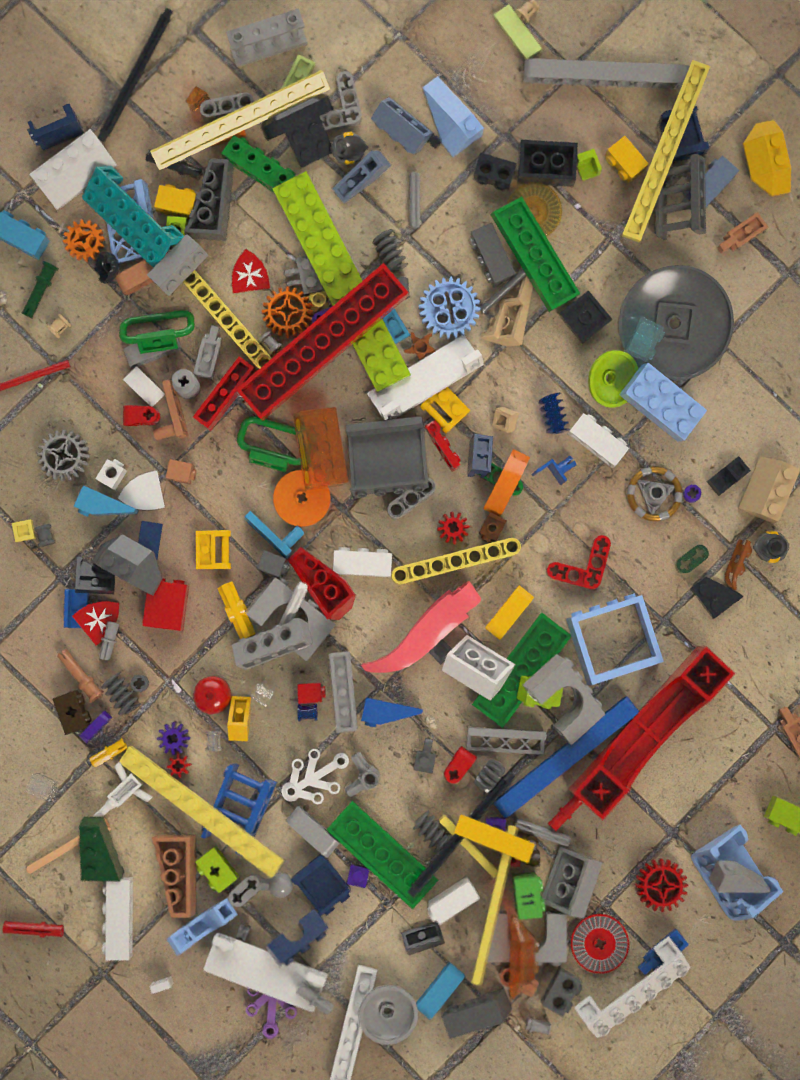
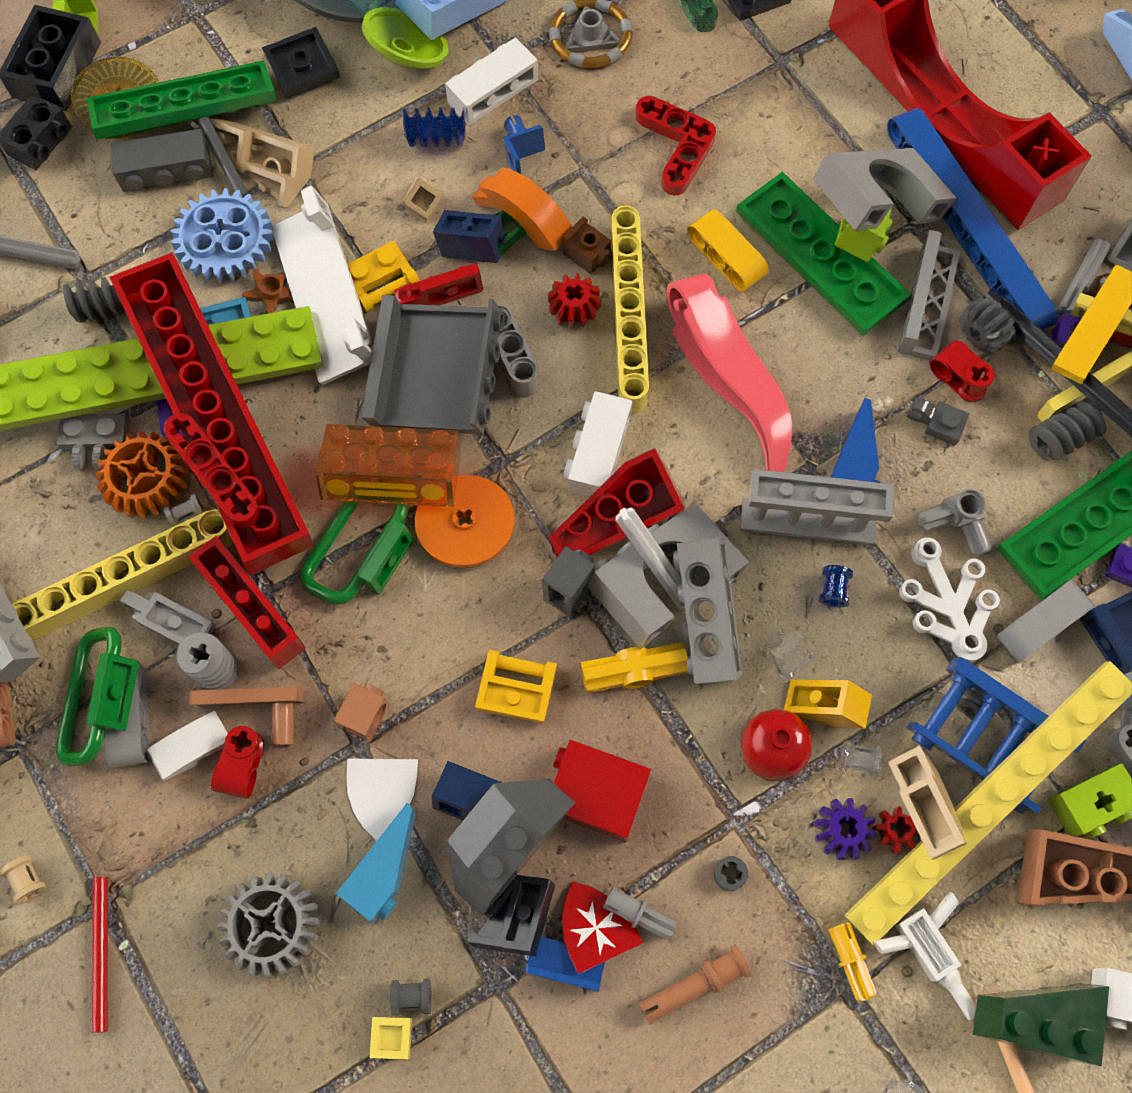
camera: 75 degrees left, 15 degrees down
(65, 704) = (786, 1021): dark brown brick -> none
(94, 728) = (799, 975): dark purple beam -> none
(103, 474) = (344, 845): white brick -> none
(120, 694) = (747, 910): dark grey piece -> none
(193, 777) = (927, 802): none -> tan slope
(249, 274) = (56, 527): red sticker -> none
(278, 355) = (213, 468): none -> red beam
(282, 547) = (517, 582): dark azure piece -> none
(311, 693) = (803, 573): red brick -> none
(313, 297) = (139, 417): light yellow plate -> none
(440, 651) = (774, 360): dark grey tile -> none
(477, 667) = (810, 305): white slope -> none
(565, 813) = (1057, 239): red pin -> none
(581, 649) = (791, 75): light blue window -> none

